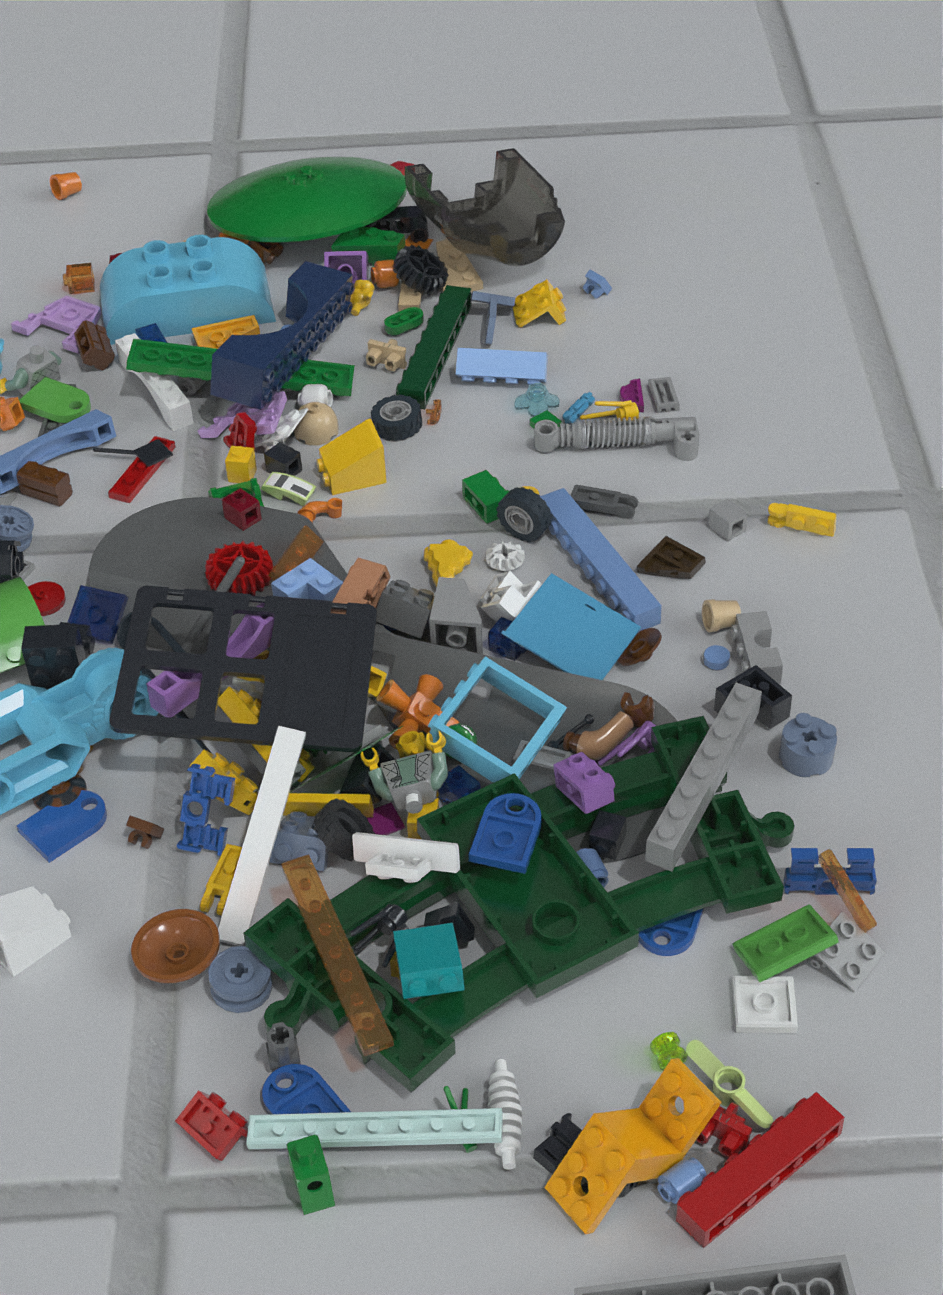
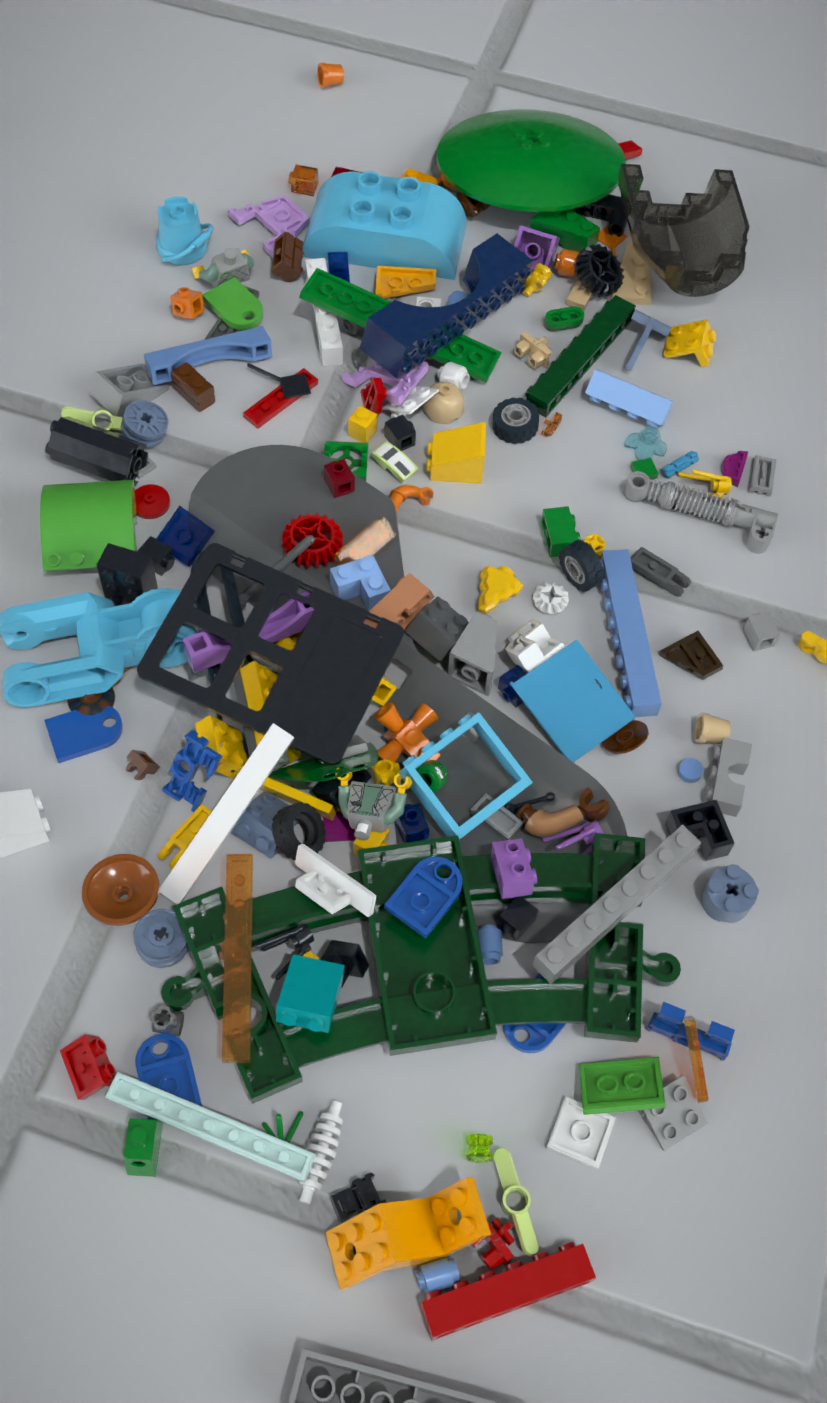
camera: 15 degrees right, 15 degrees up
(596, 282) = (753, 335): medium blue tile -> none

